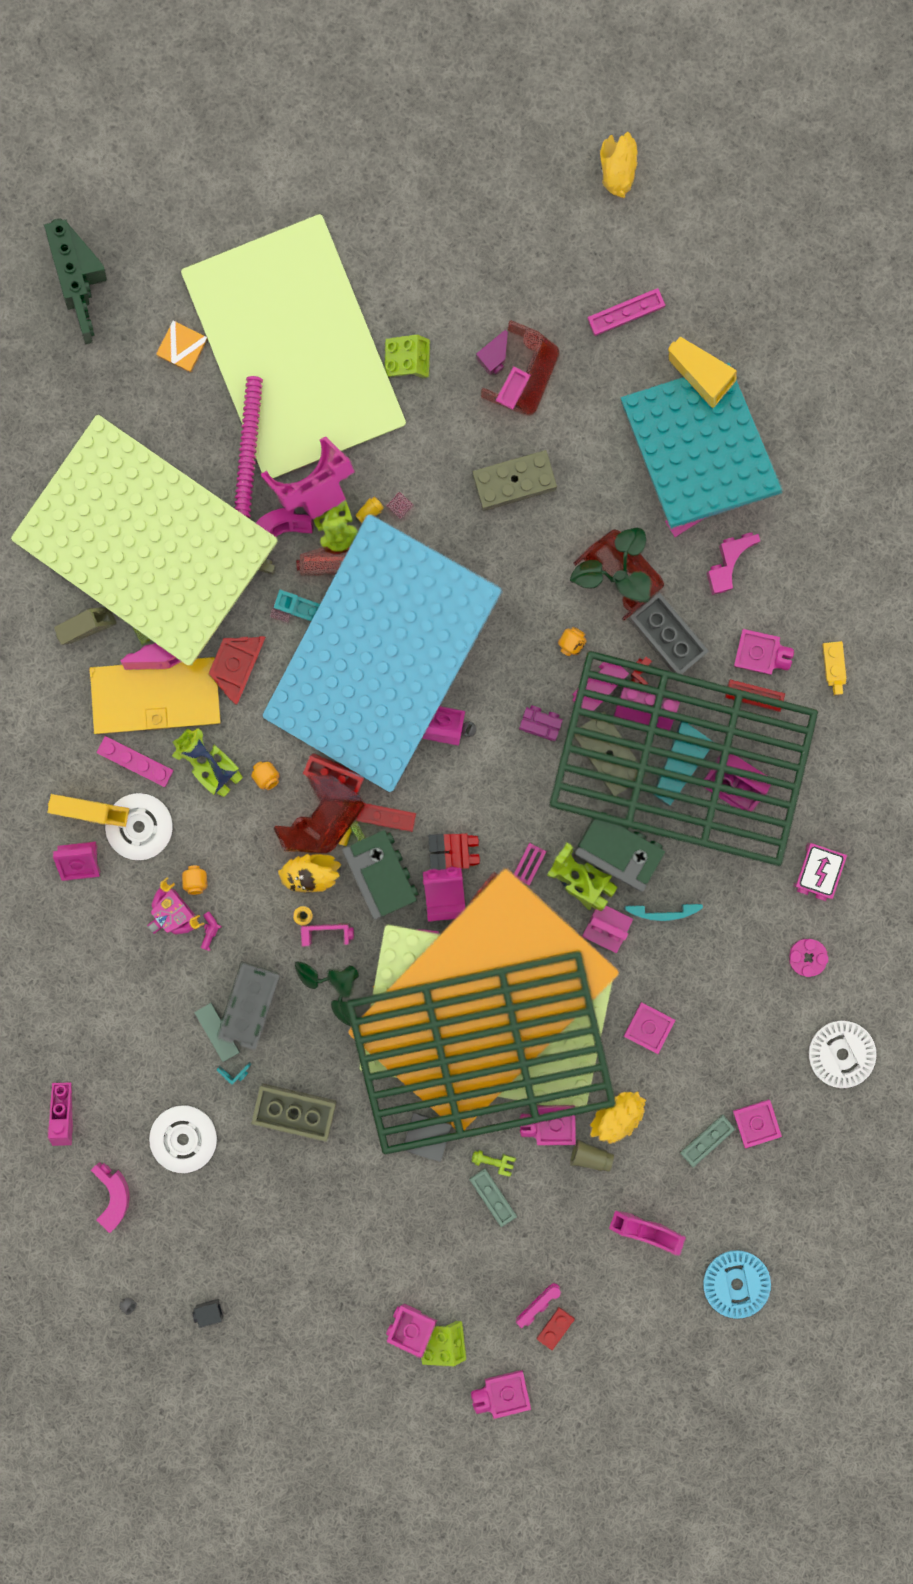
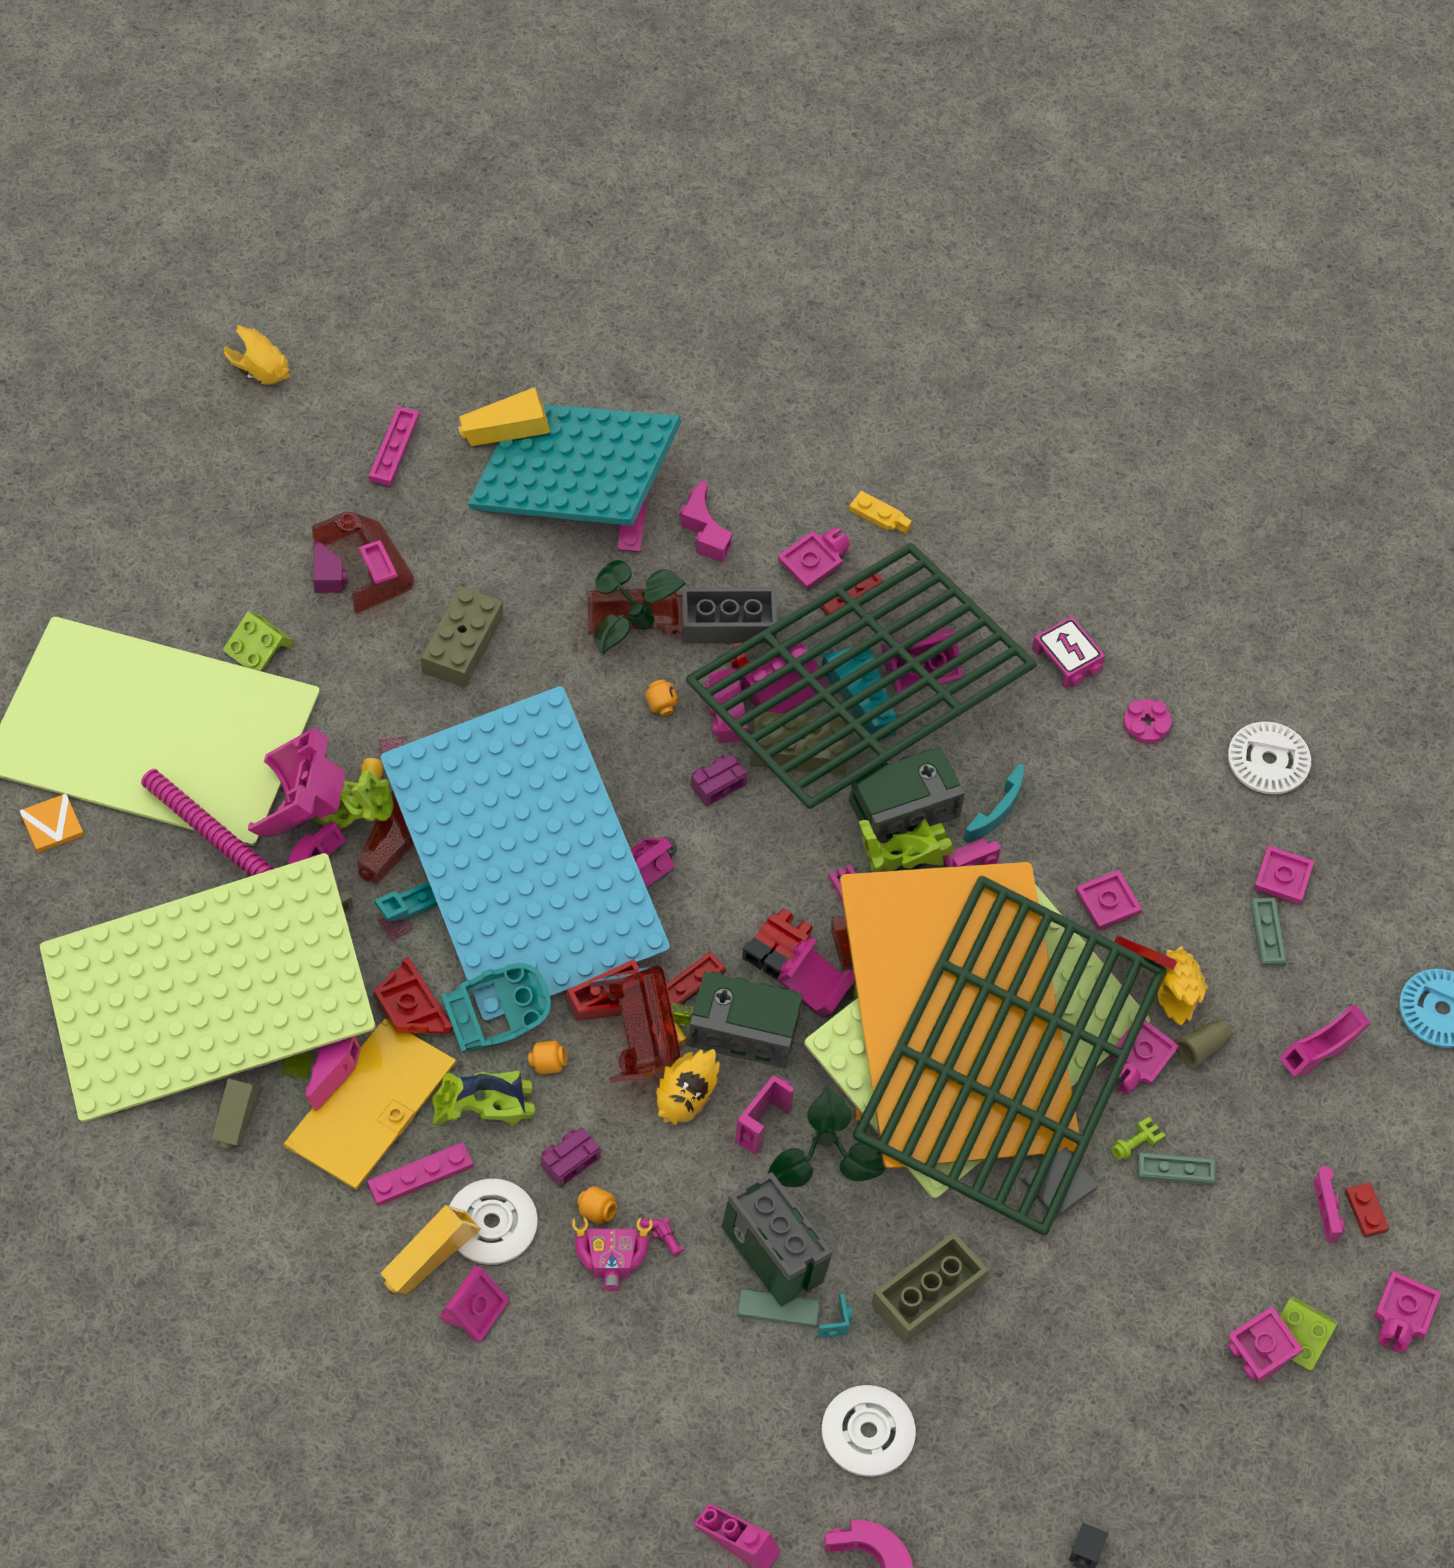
camera: 55 degrees left, 30 degrees down
(212, 840) = (570, 1156): none -> magenta brick
(286, 732) = (522, 998): none -> teal slope
(297, 915) = (725, 1123): yellow cone -> none
(620, 1082) = (1148, 953): none -> red tile

